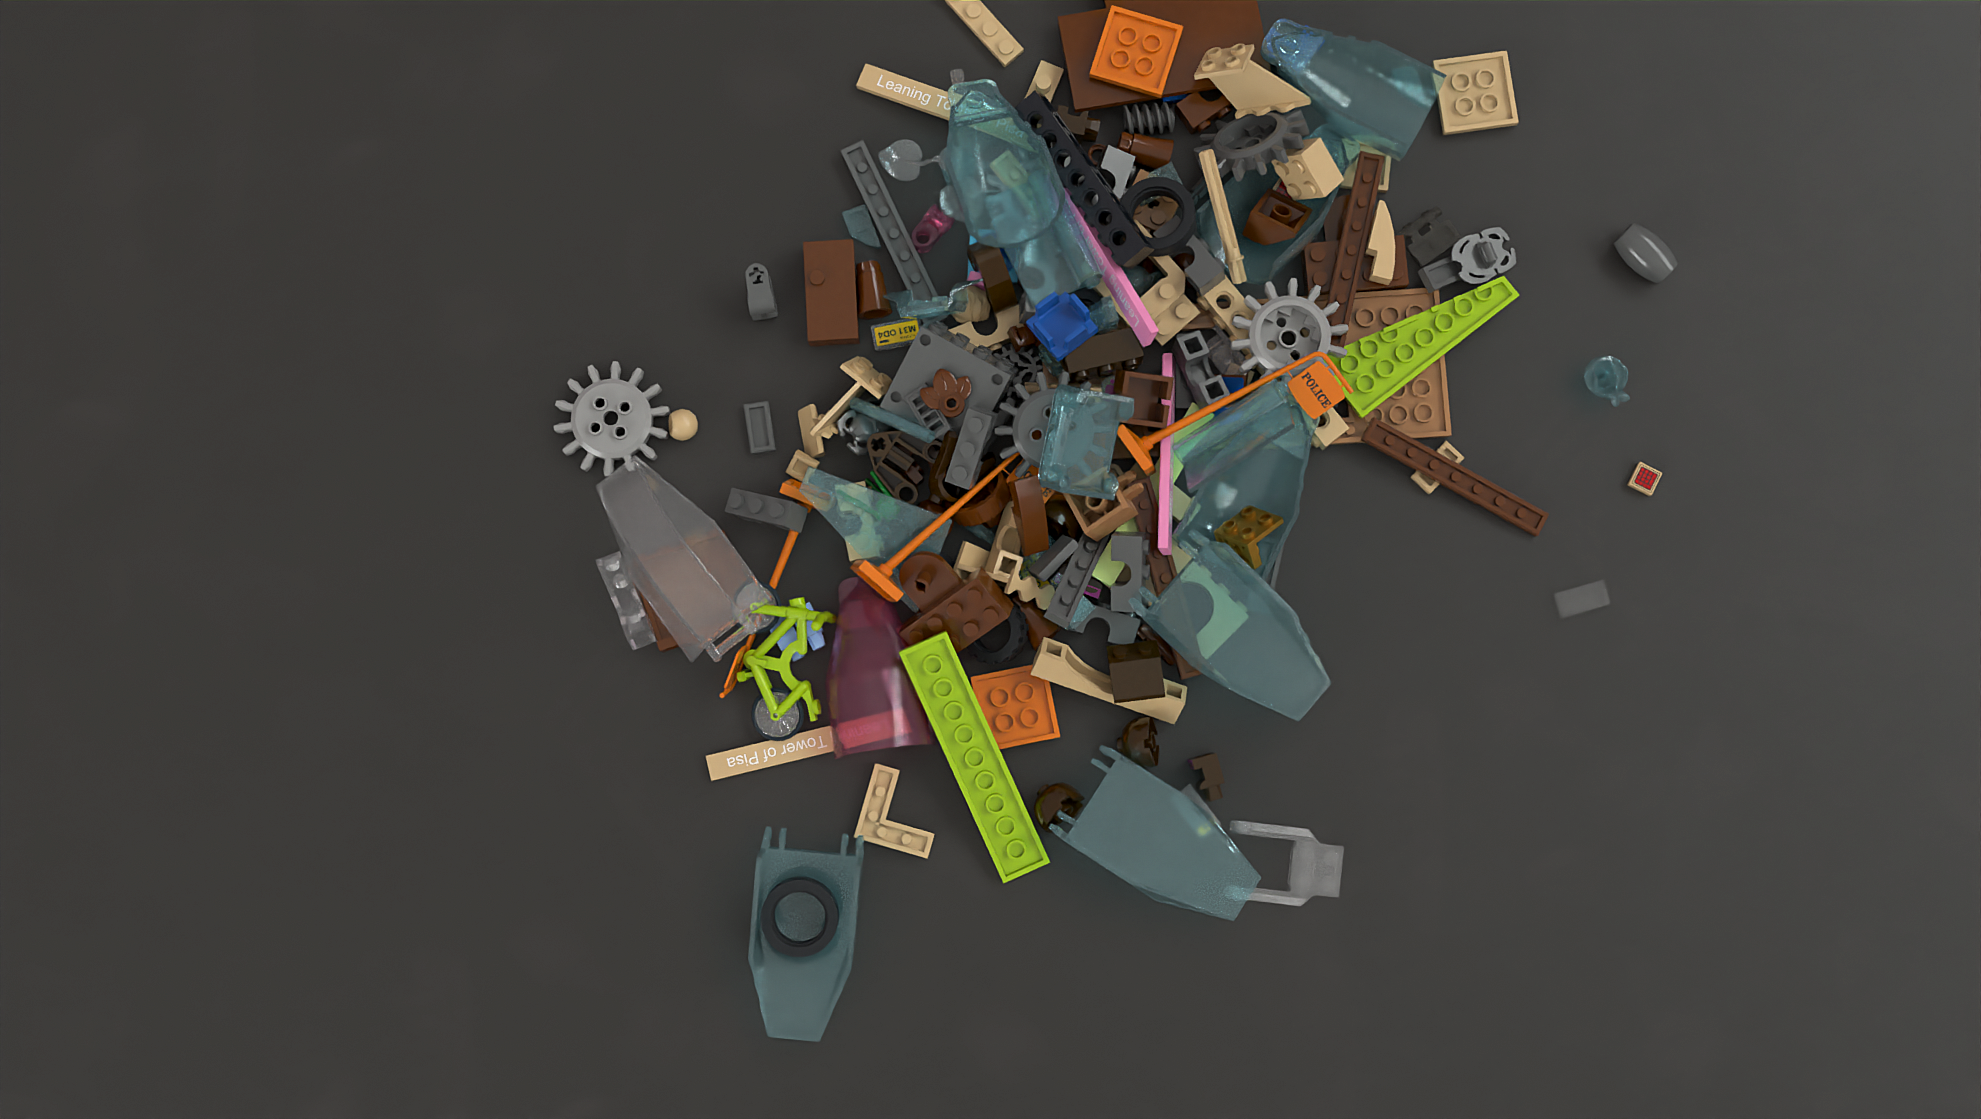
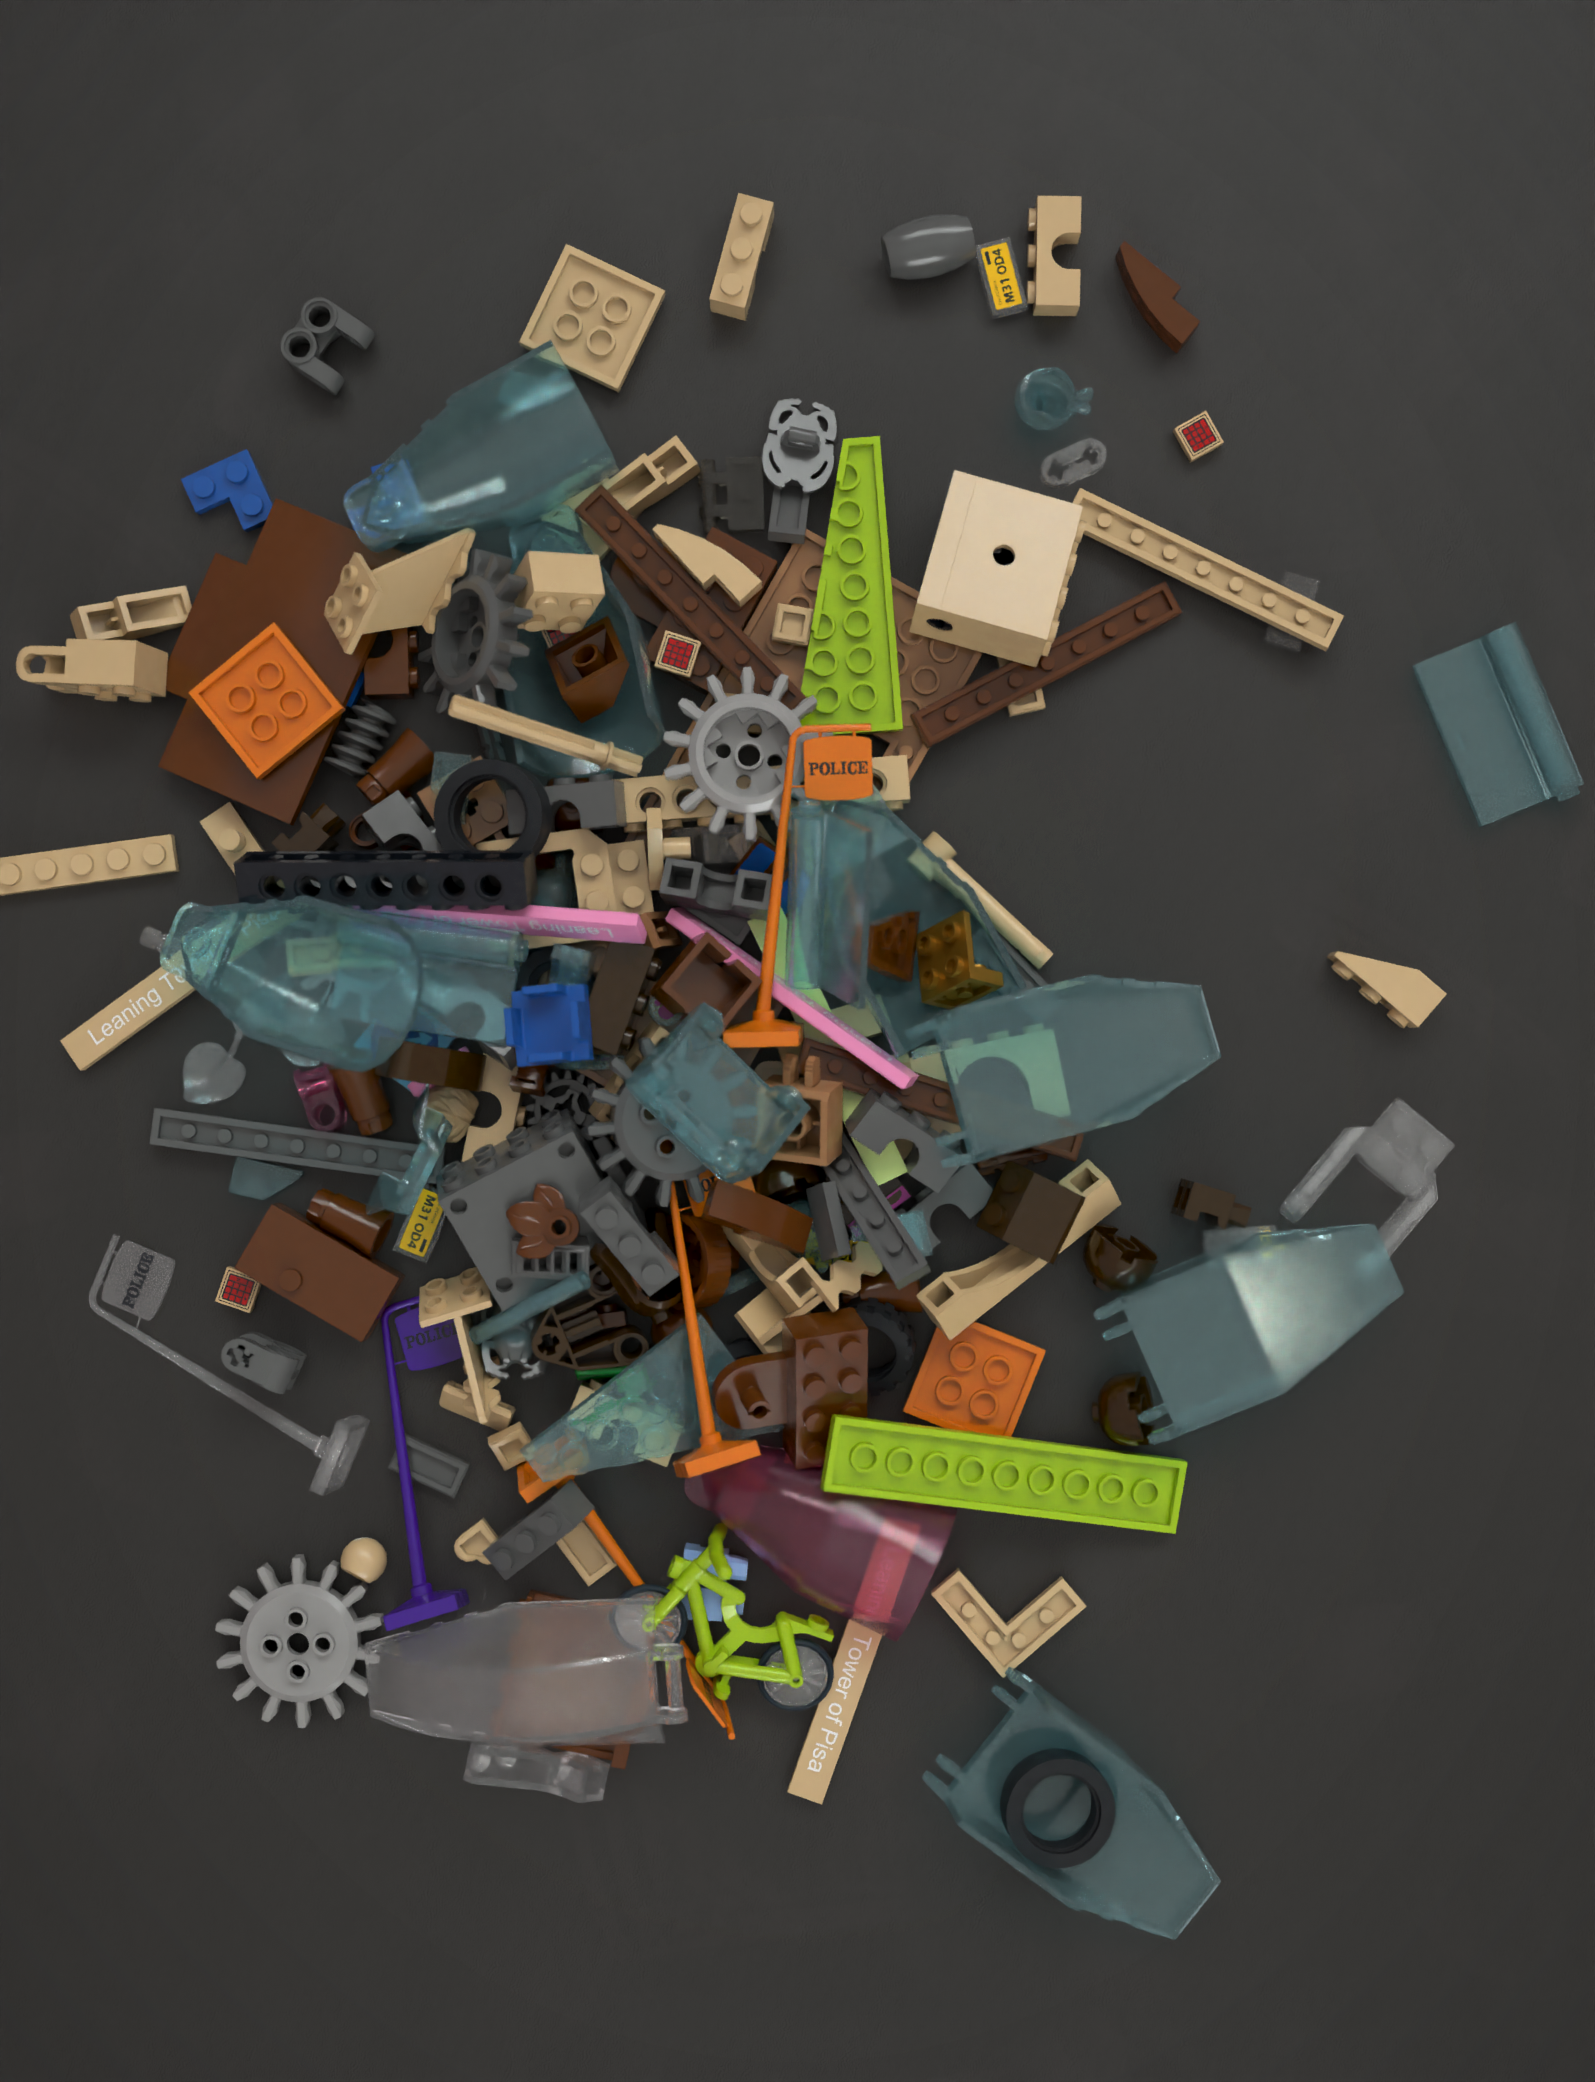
camera: 55 degrees left, 5 degrees up
(730, 480) = (474, 1541): none -> tan tile
(754, 197) = (139, 1284): none -> clear piece
(769, 547) = (586, 1553): none -> tan tile
(790, 255) = (238, 1290): none -> tile
(827, 381) = (422, 1350): none -> dark purple piece
(949, 249) = (364, 1098): none -> reddish brown plant
(1153, 355) = (659, 932): none -> medium nougat slope
(1202, 323) = (661, 847): none -> tan tile
(1234, 491) = (894, 945): none -> reddish brown wing
(1291, 545) = (1002, 920): none -> tan piece
(1318, 262) = (677, 654): none -> tile
(1378, 317) = (792, 625): none -> tan tile
(1407, 804) = (1401, 989): none -> tan slope
(1408, 185) = (653, 476): none -> tan slope
(1489, 410) = (998, 569): none -> tan gear
(1558, 154) = (741, 255): none -> tan arch
(1570, 531) = (1207, 571): none -> tan plate
(1582, 412) = (1068, 456): none -> clear beam
(1598, 762) = (1498, 725): none -> clear light blue door
(1657, 307) = (1001, 278): none -> tile
(1706, 401) = (1155, 298): none -> reddish brown slope
(1708, 317) = (1053, 288): none -> tan arch

